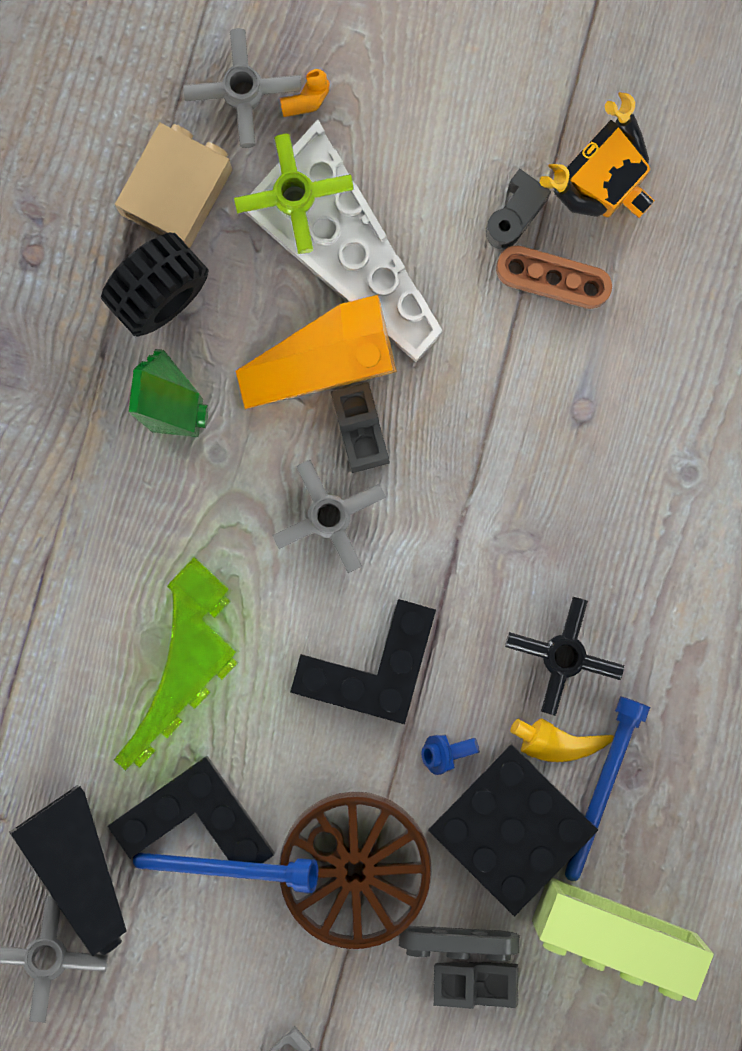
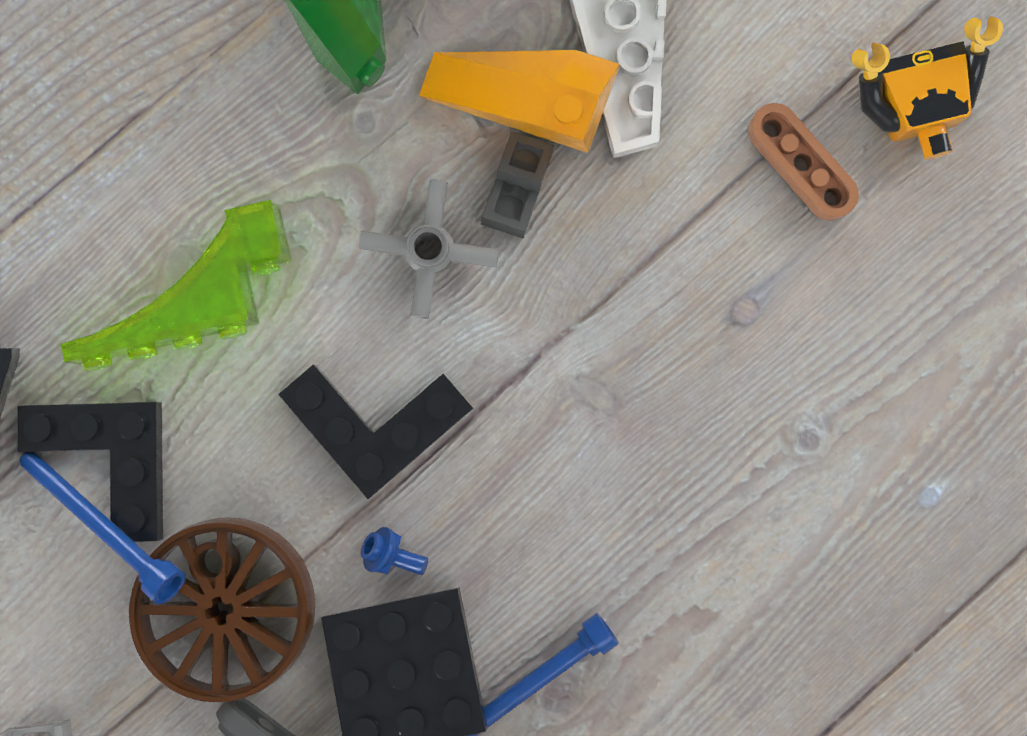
camera: 40 degrees right, 0 degrees up
(509, 223) = (801, 80): dark grey leg -> none
(554, 745) = (497, 613): yellow bar -> none
(581, 659) = (581, 552): black bar -> none

